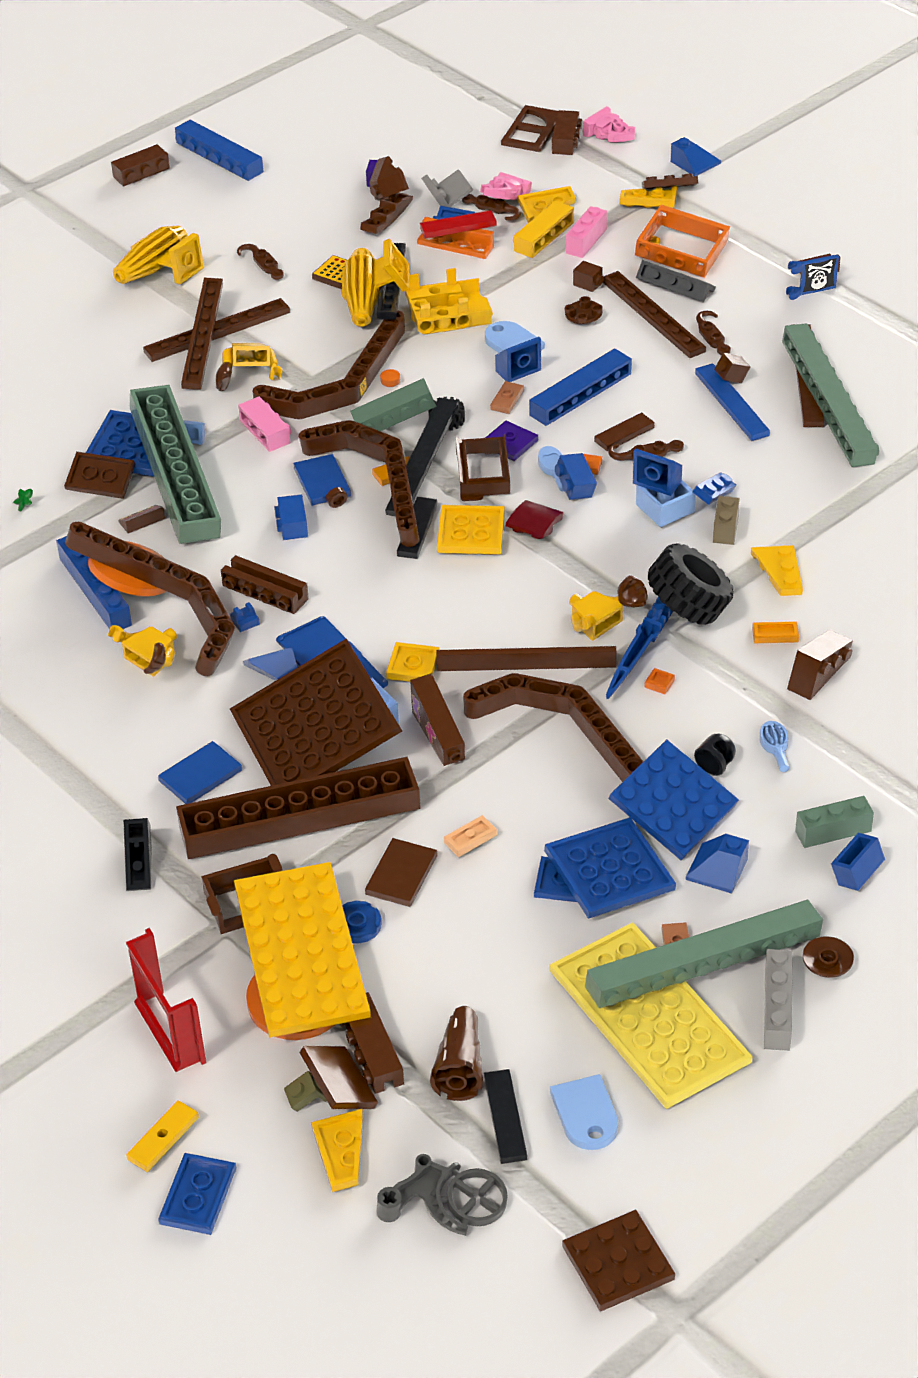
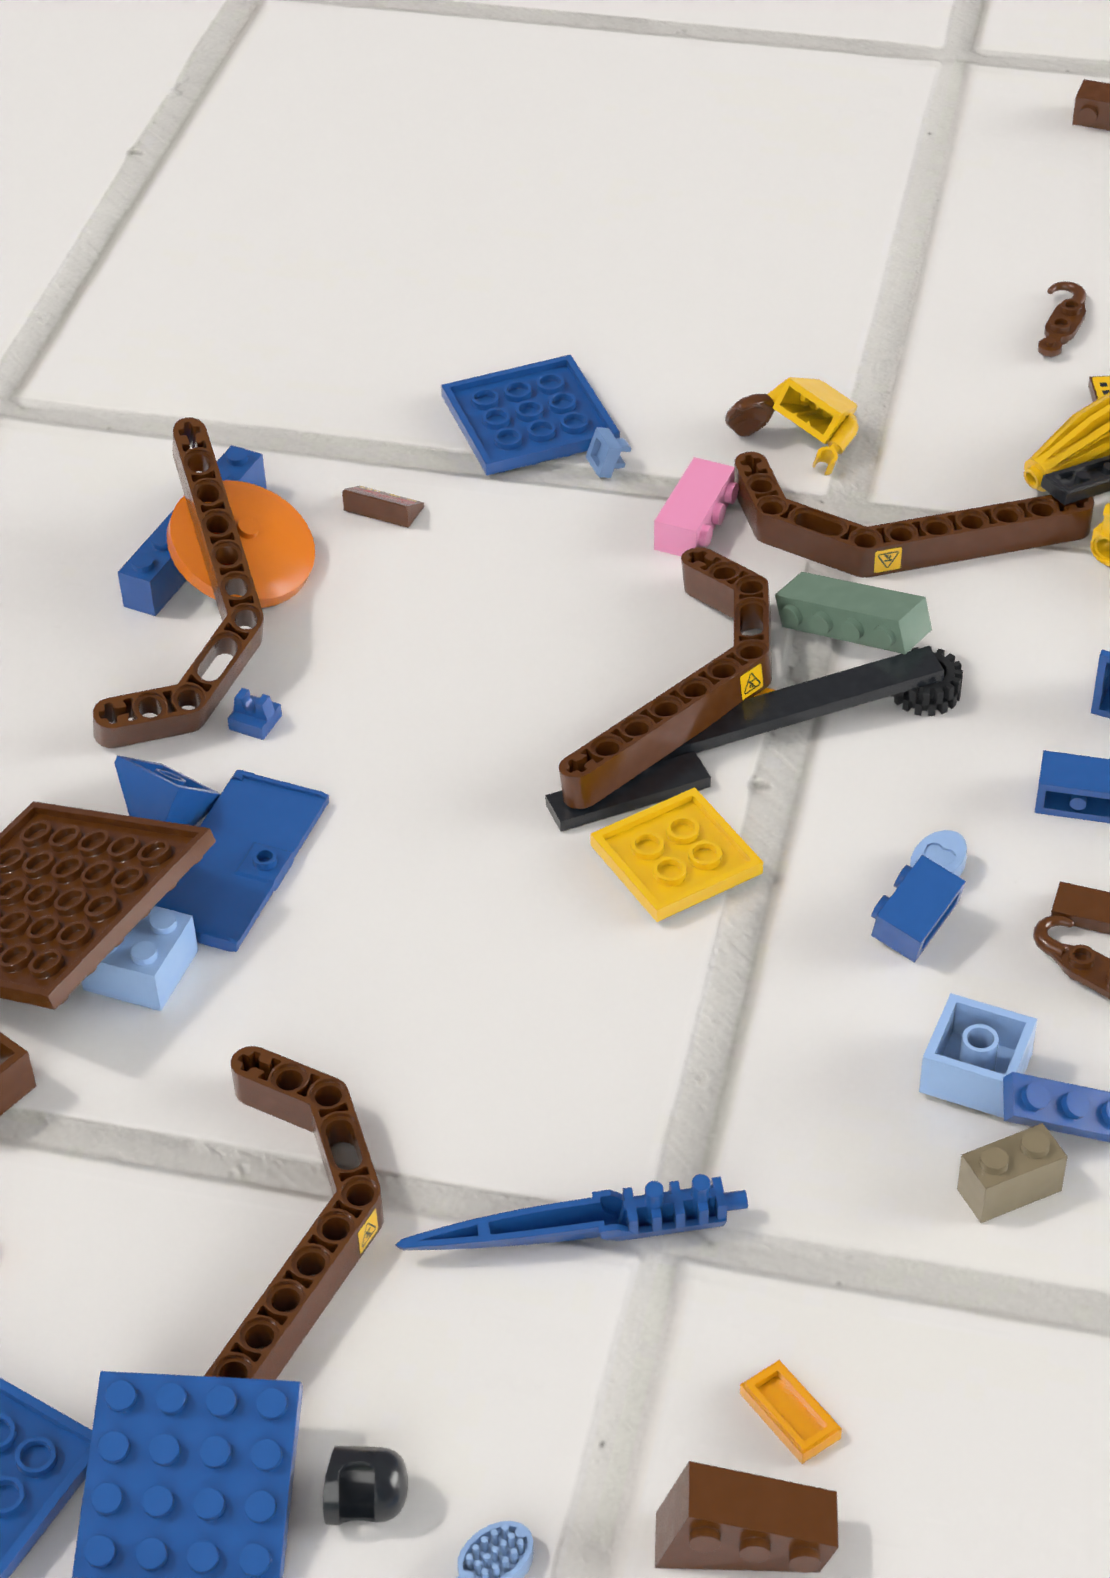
camera: 55 degrees right, 0 degrees up
(24, 498) = (318, 381): green plant -> none
(99, 475) = (427, 418): reddish brown tile -> none
(148, 648) = (96, 654): yellow torso -> none
(162, 247) = (950, 220): yellow piece -> none
(175, 464) = (492, 466): sand green brick -> none
(202, 334) = (821, 345): reddish brown plate -> none
(222, 328) = (865, 360): reddish brown tile -> none
(265, 584) = (335, 699): reddish brown brick -> none
(292, 517) = (514, 644): blue brick -> none
(319, 477) = (638, 632): blue tile -> none
(336, 497) = (604, 666): reddish brown tile -> none
(390, 378) = (948, 579): orange tile -> none
(411, 661) = (297, 951): yellow plate -> none
(436, 720) = (164, 1048): reddish brown slope -> none
(475, 488) = (846, 813): reddish brown piece -> none
(507, 397) = (1047, 728): nougat plate -> none
(517, 438) = (945, 787): dark purple plate -> none
(526, 658) = (418, 1088): reddish brown tile -> none
(534, 519) = (771, 915): dark red slope -> none
(594, 462) = (989, 914): orange tile -> none
(600, 613) = (605, 1118): yellow torso -> none
(656, 472) = (985, 998): blue slope -> none
(659, 681) = (516, 1301): orange tile -> none
(690, 584) = (792, 1188): black tyre -> none
(781, 567) = (974, 1328): yellow wing -> none

